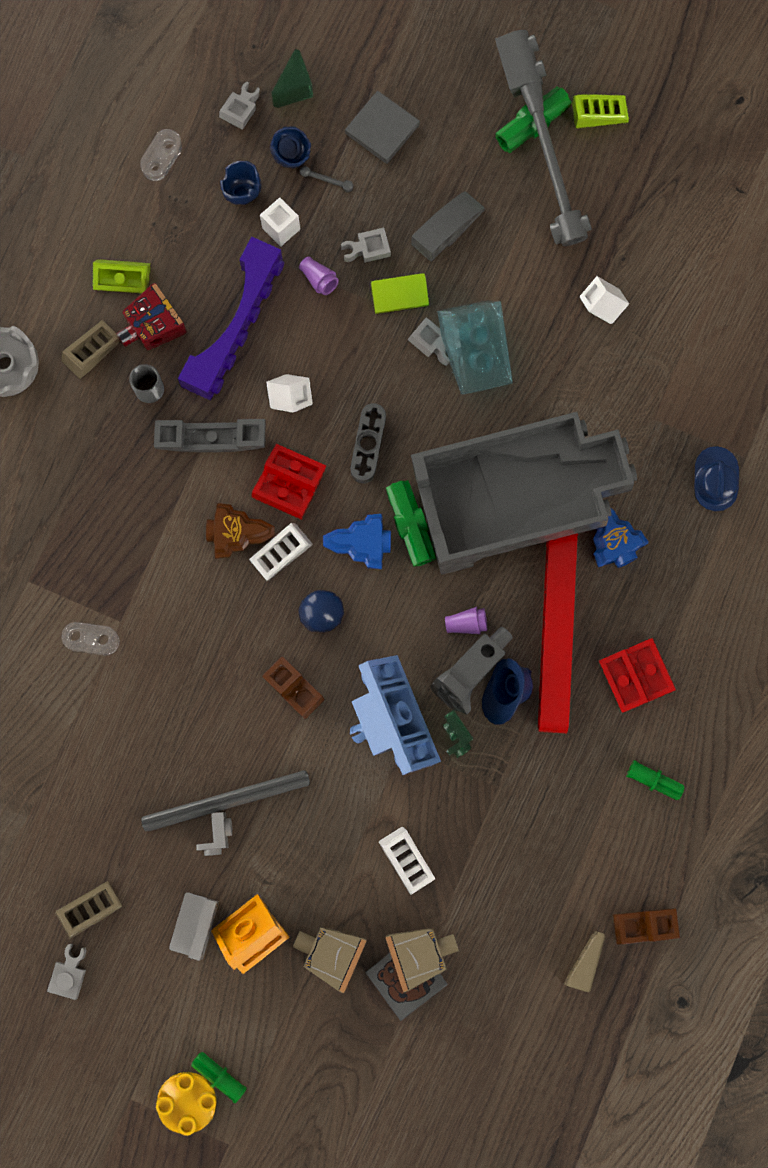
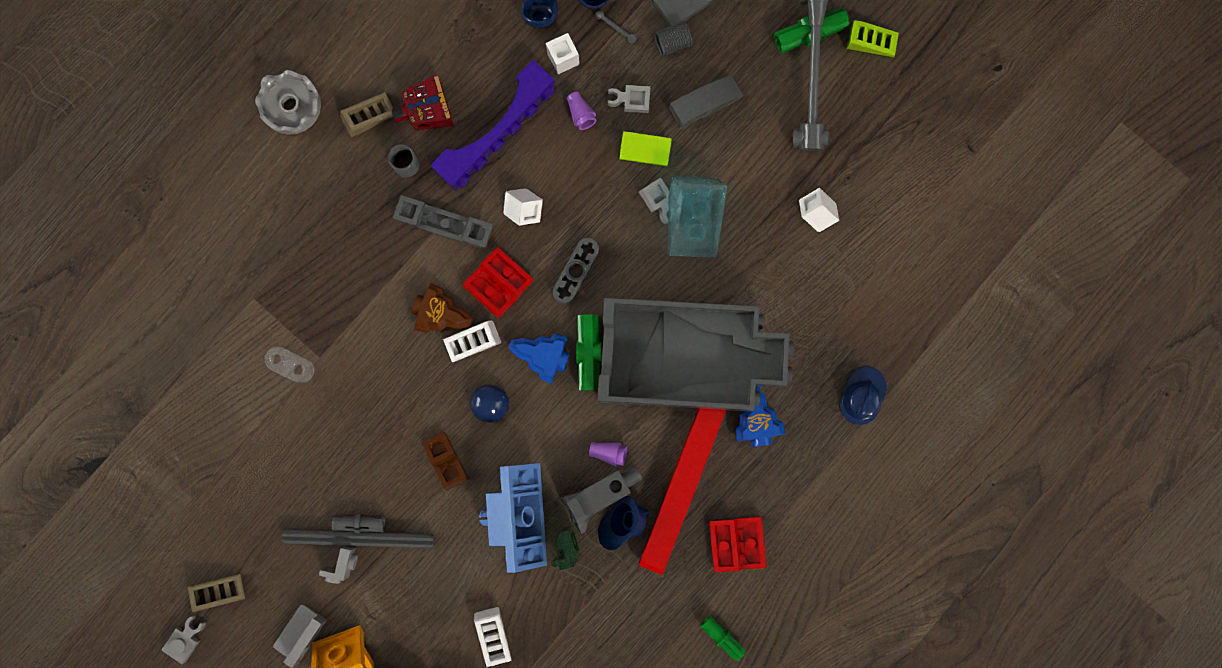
camera: 15 degrees right, 5 degrees up
(120, 276) = (413, 58): lime slope -> none
(221, 784) = (358, 523): none -> dark grey pin
(392, 171) = (673, 39): none -> dark grey piece

